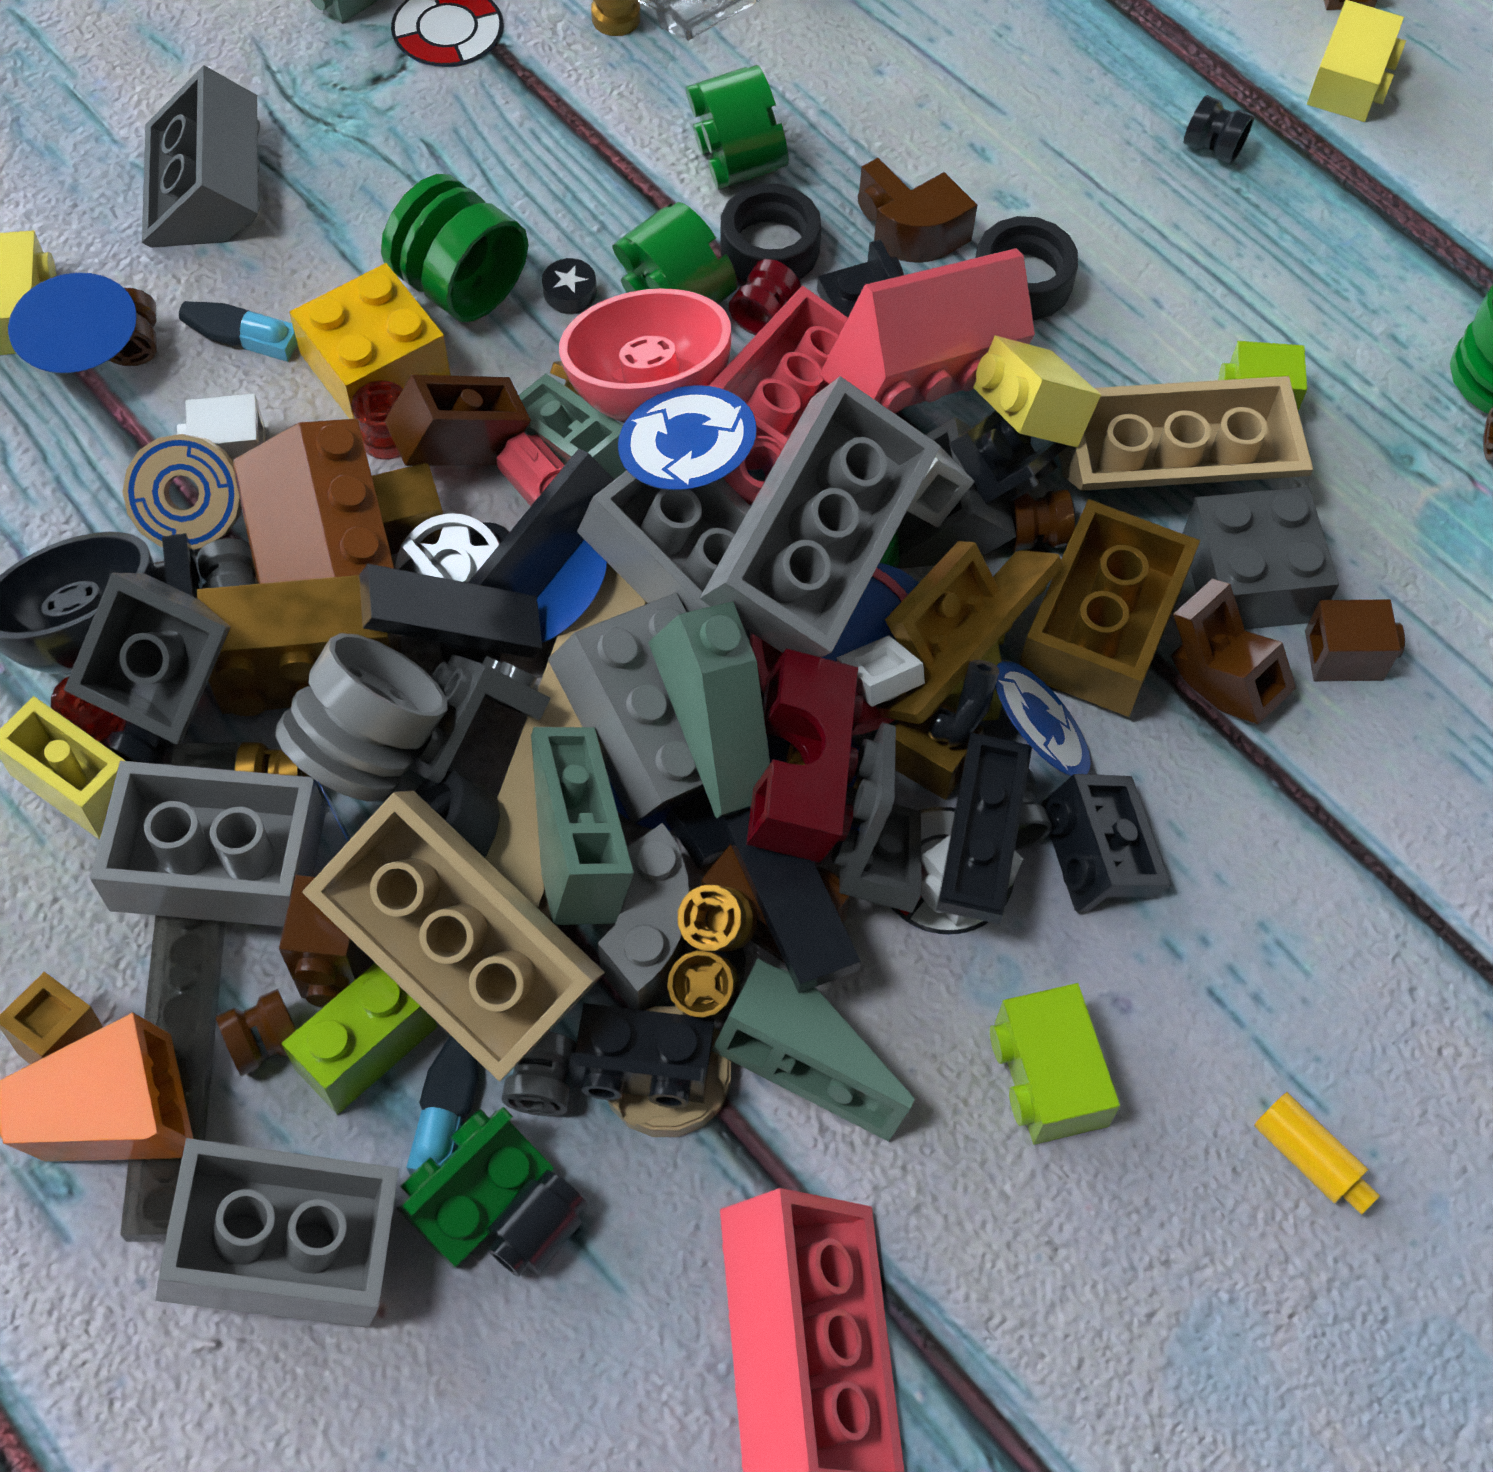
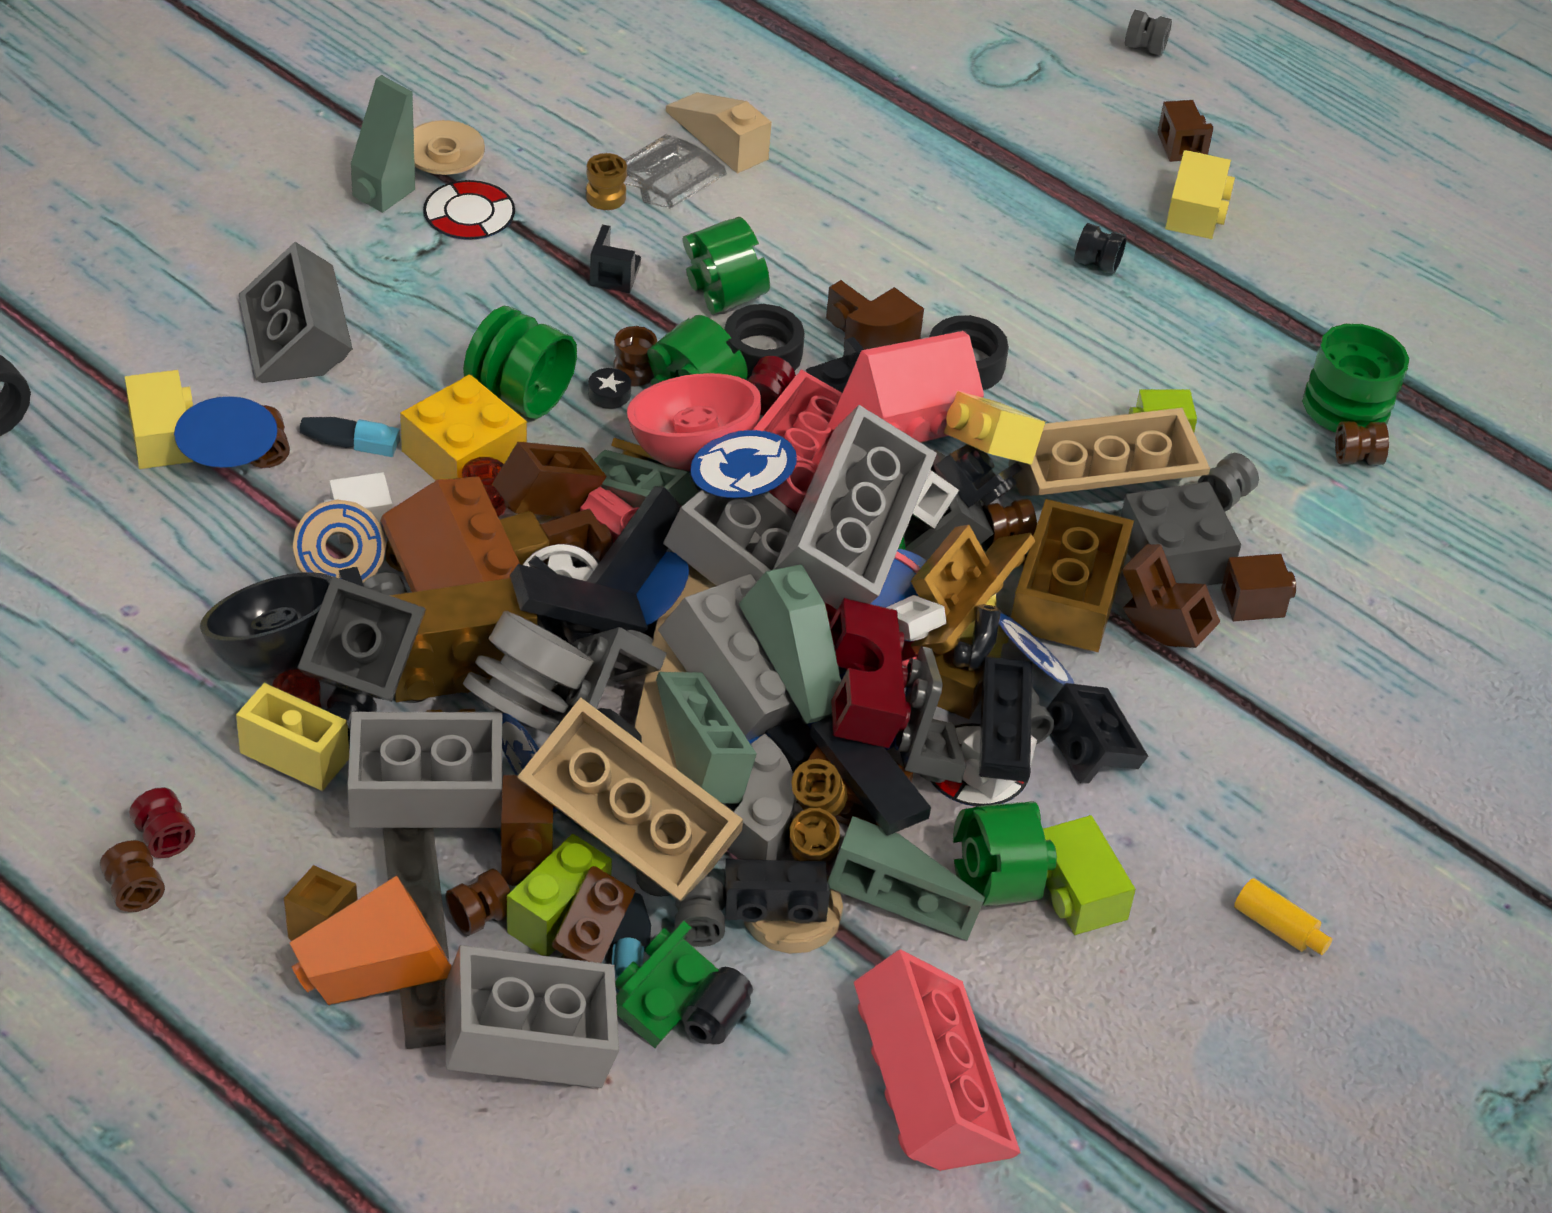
camera: 10 degrees left, 15 degrees down
(385, 1091) = (593, 917): none -> reddish brown bracket
(483, 496) = (580, 530): none -> reddish brown bracket
(597, 233) = (631, 353): none -> reddish brown wheel
(600, 115) = (612, 266): none -> black panel
(951, 1031) = (1004, 852): none -> green brick
(1343, 475) = (1234, 478): none -> dark grey wheel

